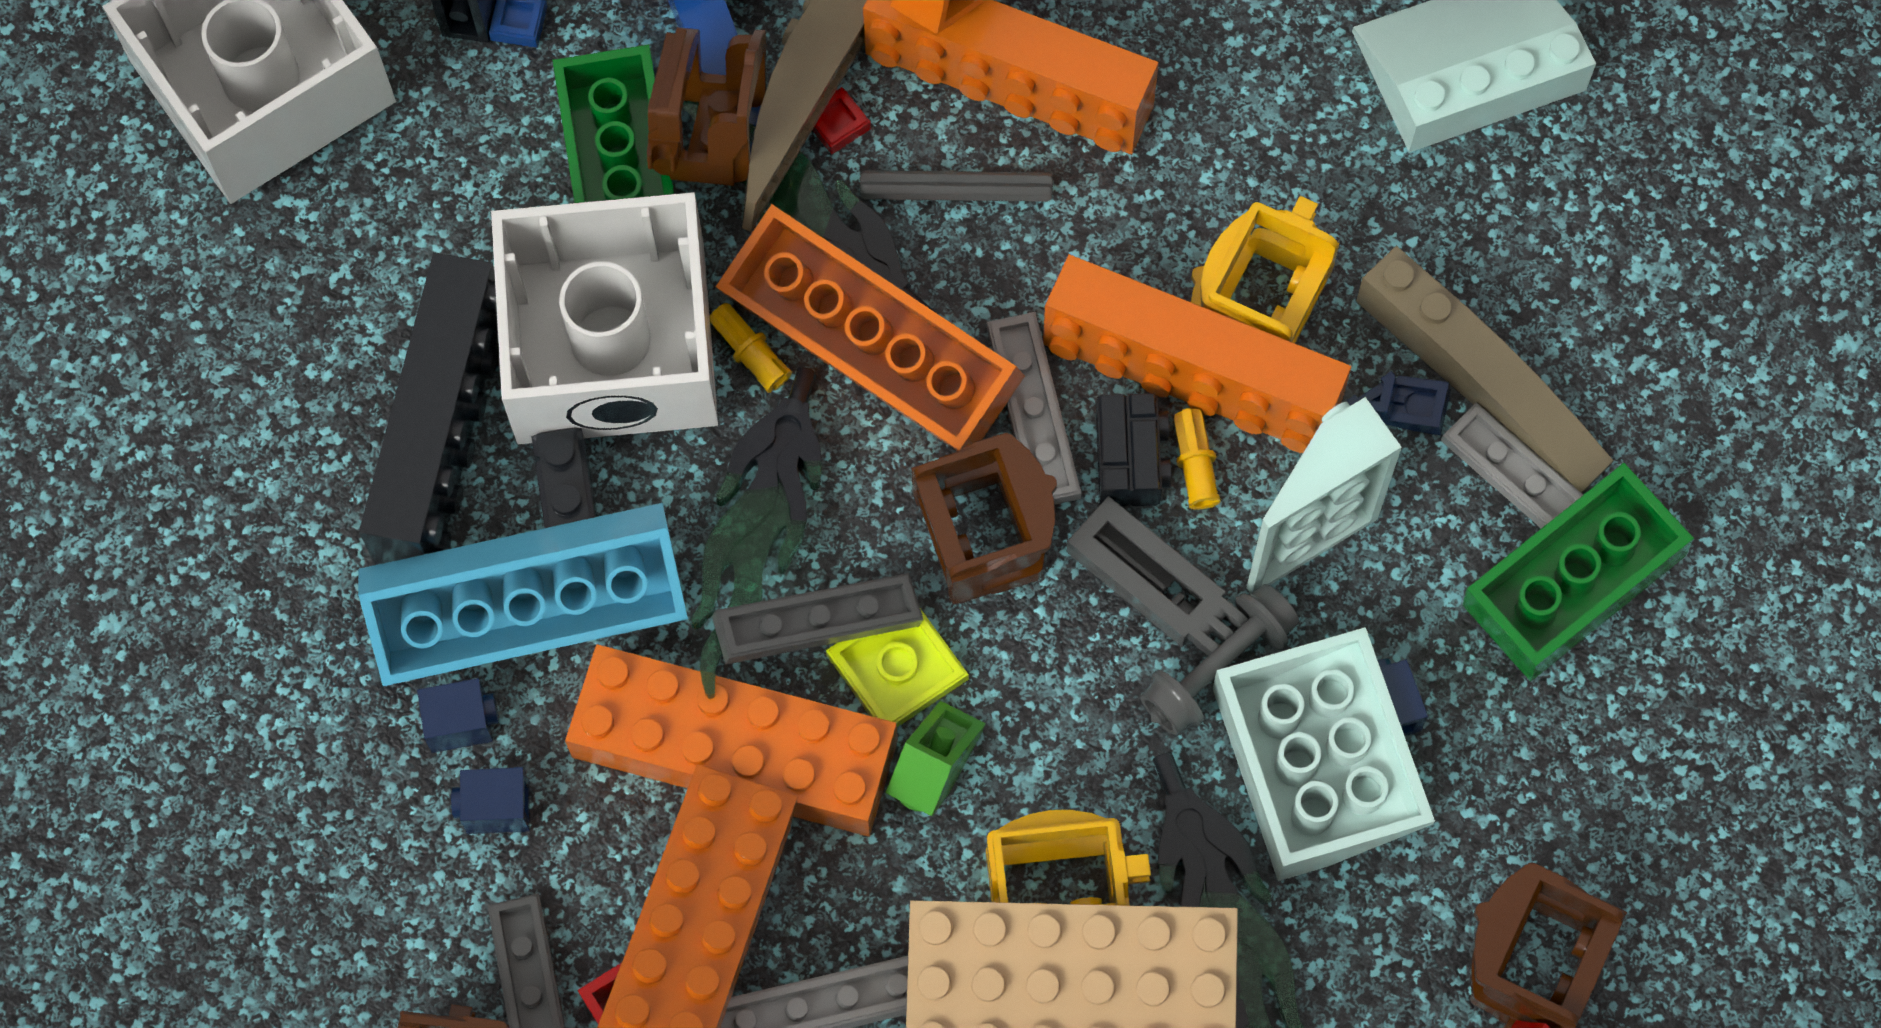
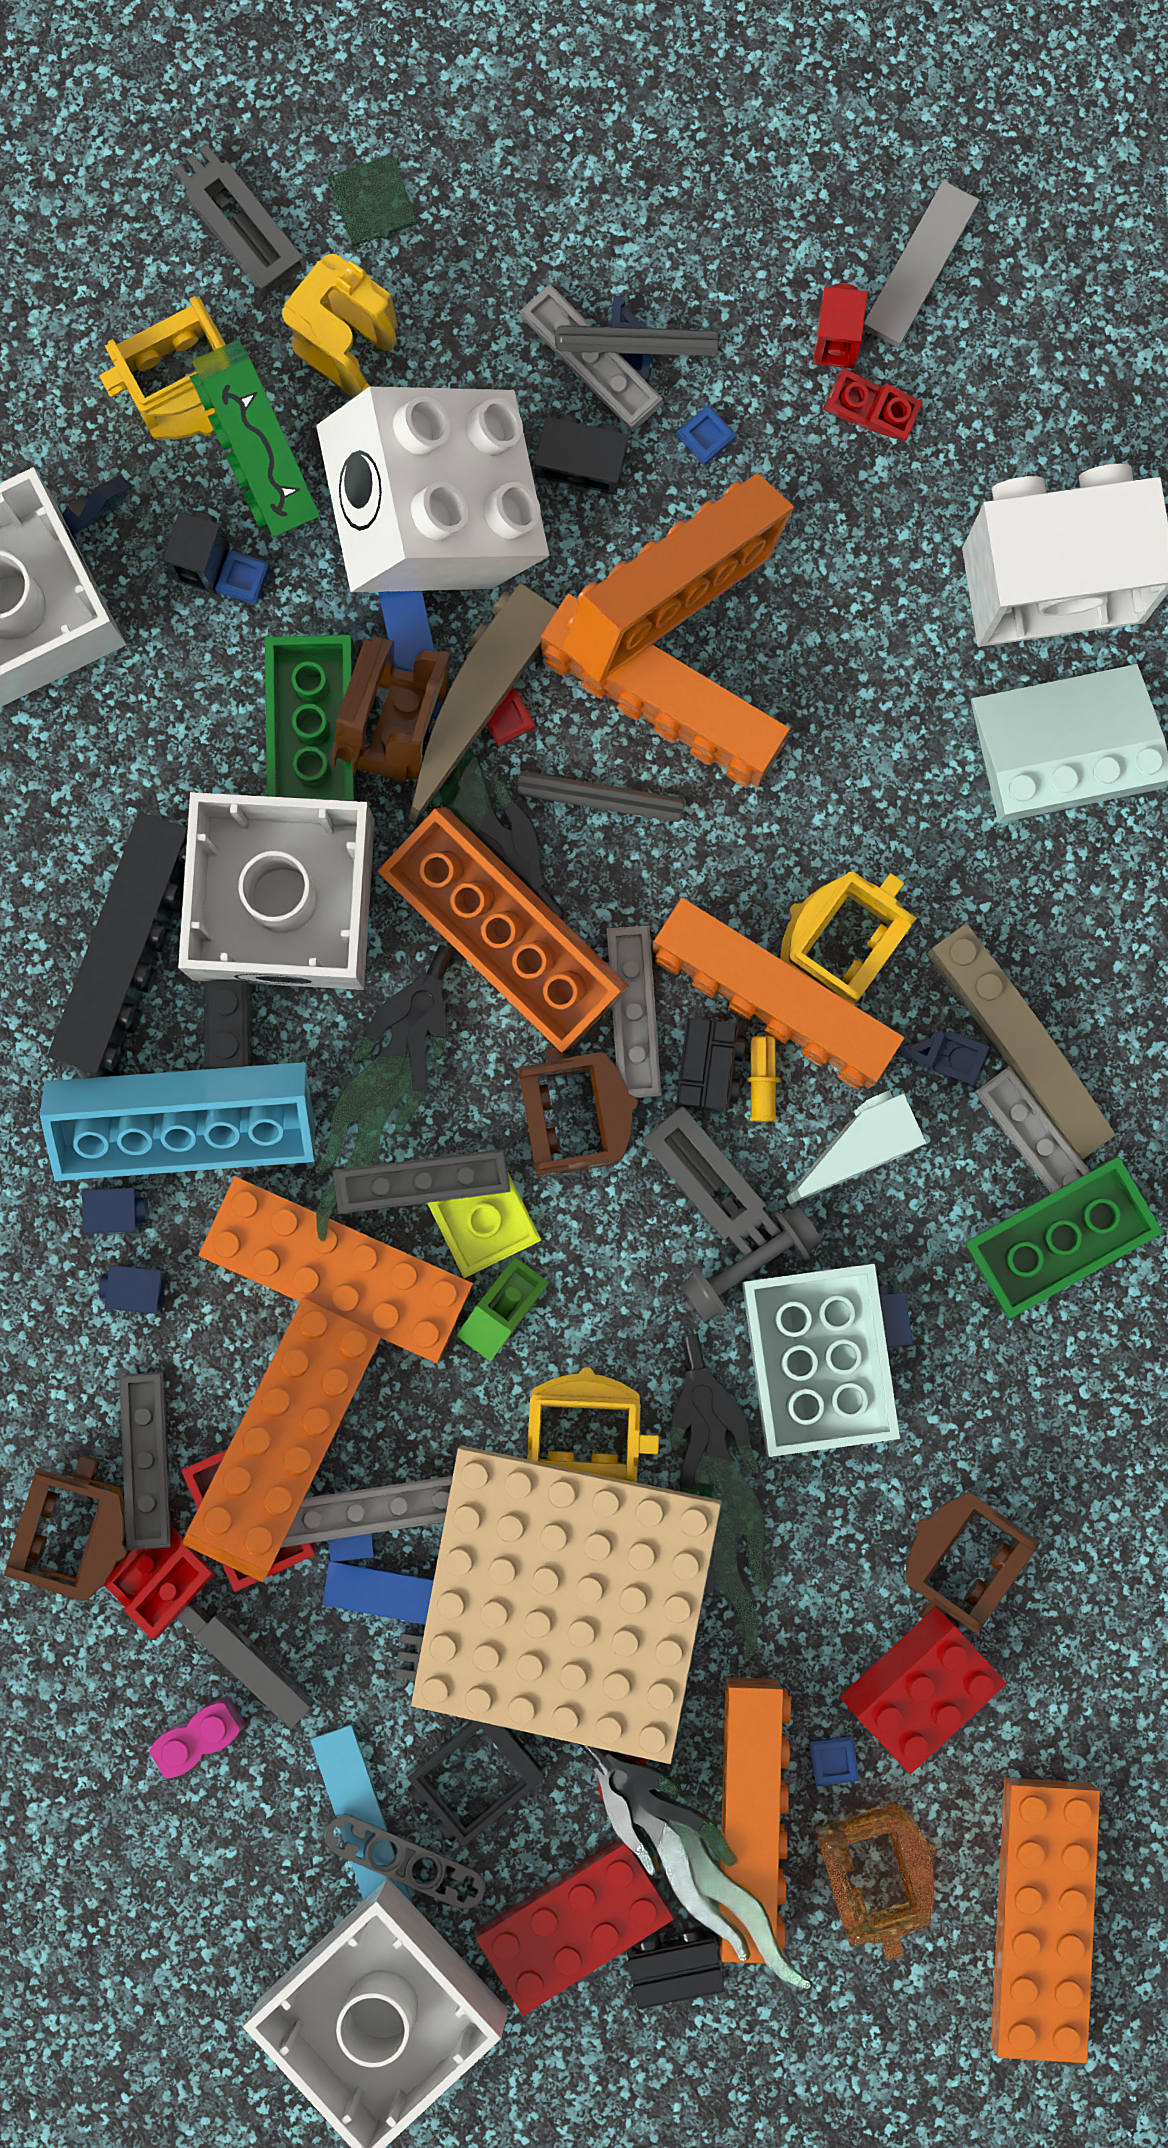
camera: 10 degrees right, 15 degrees up
(750, 348) = (400, 920): yellow axle -> none

